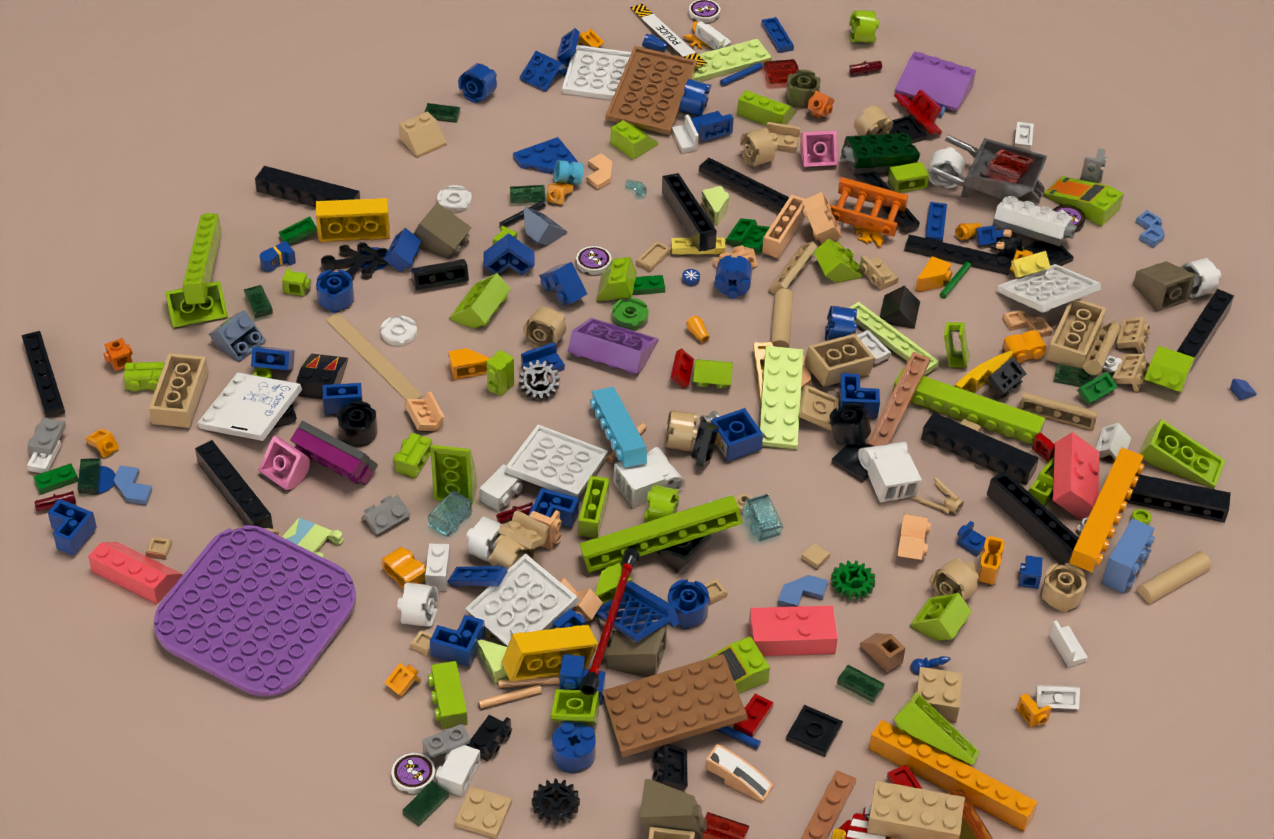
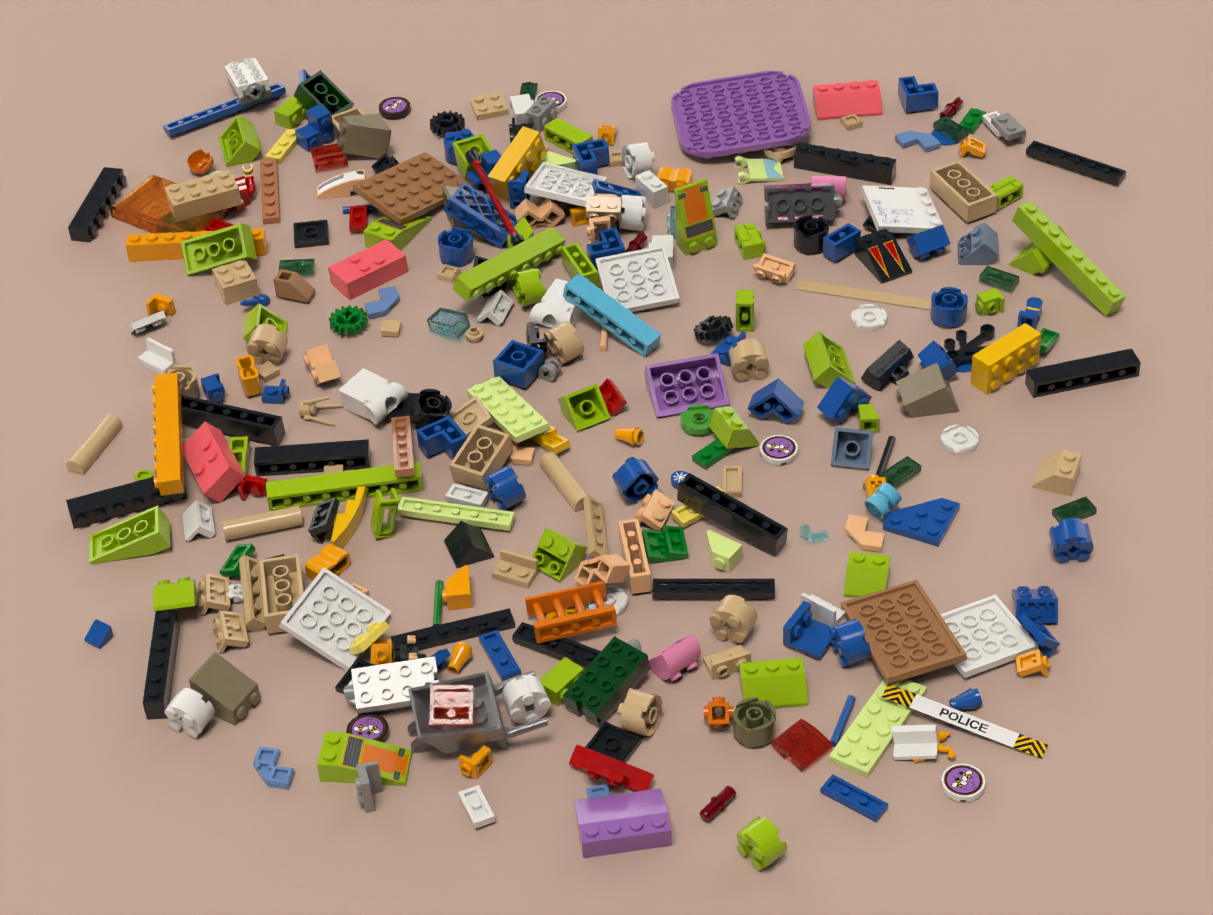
camera: 150 degrees right, 5 degrees down
(118, 354) = (1040, 191): orange brick -> none
(467, 363) = (784, 315): light orange slope -> none
(1128, 556) = (136, 425): medium blue brick -> none

